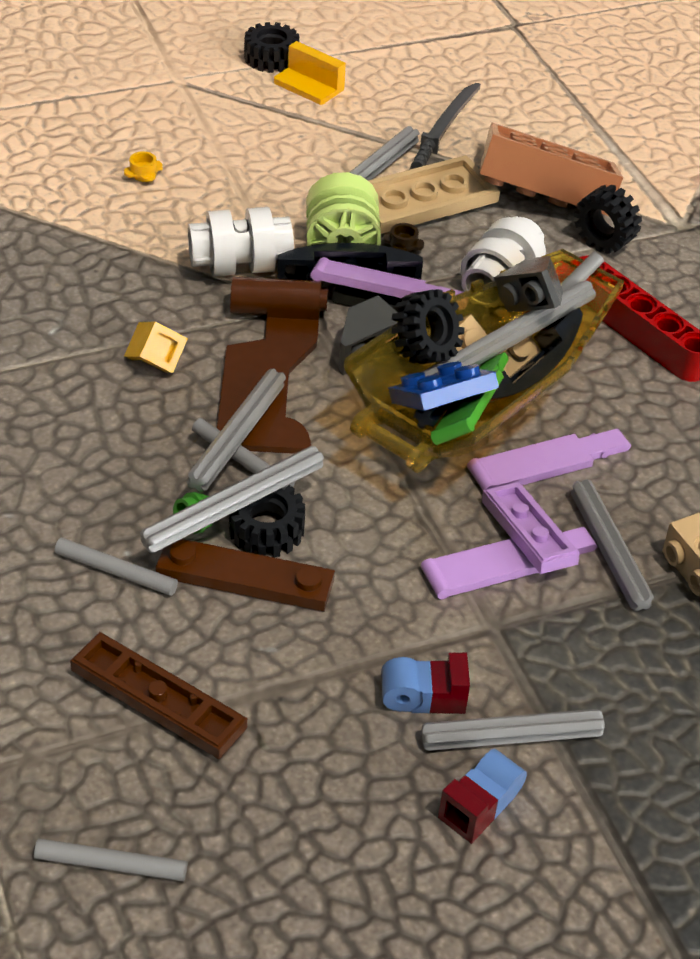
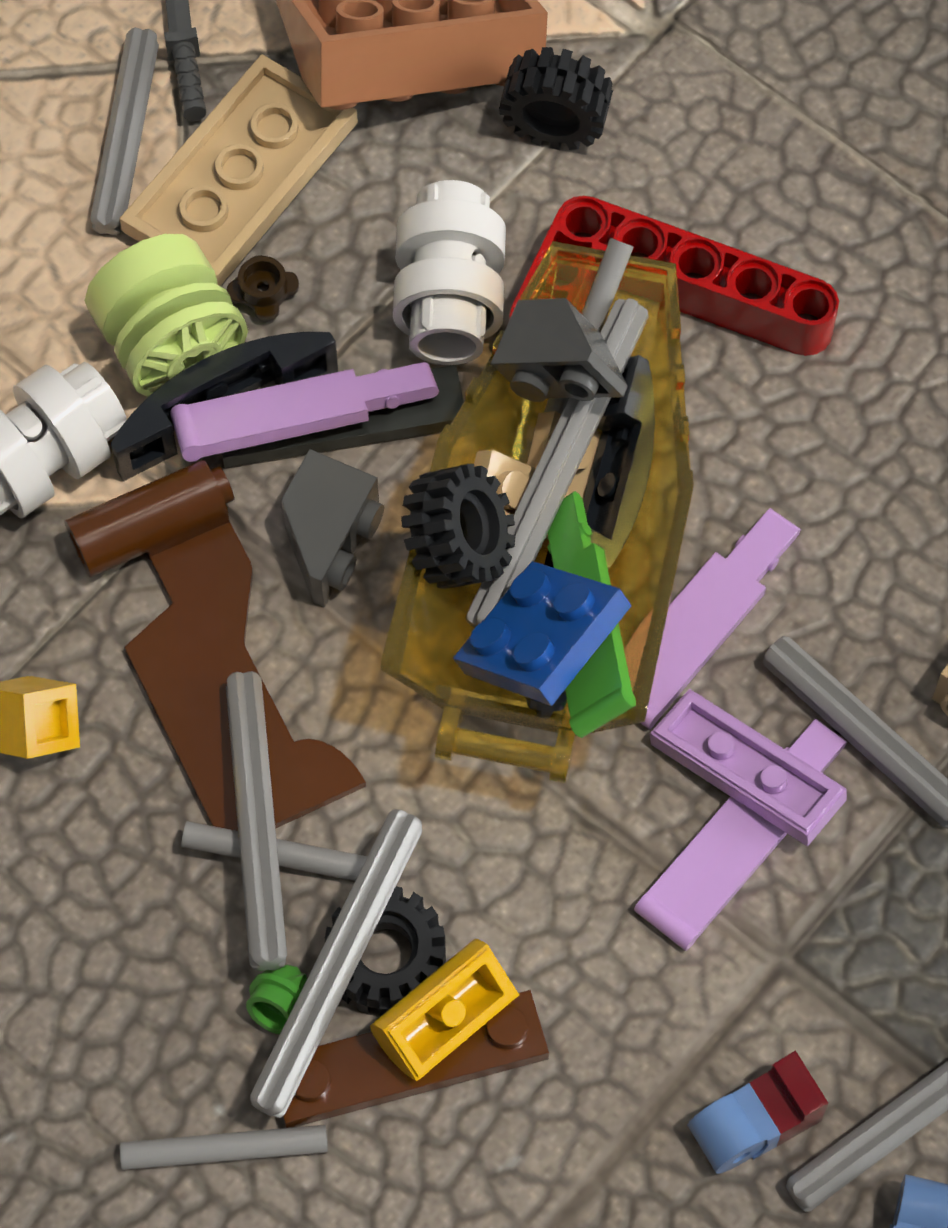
camera: 25 degrees left, 20 degrees up
(277, 545) = (444, 1010): none -> yellow brick

